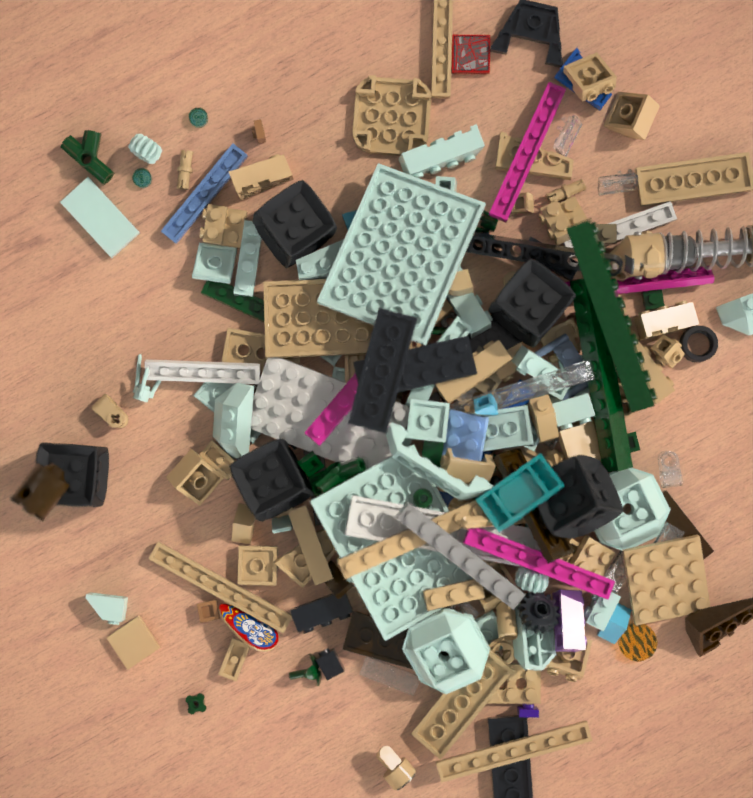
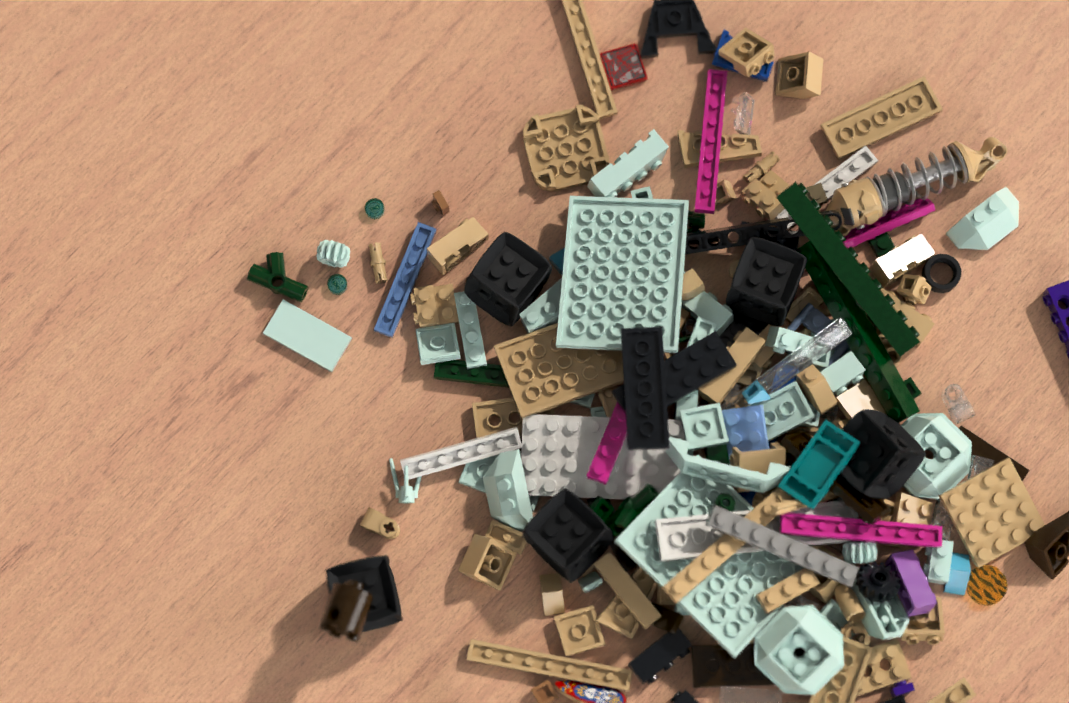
camera: 25 degrees left, 10 degrees down
(617, 183) = (808, 144): clear plate -> none

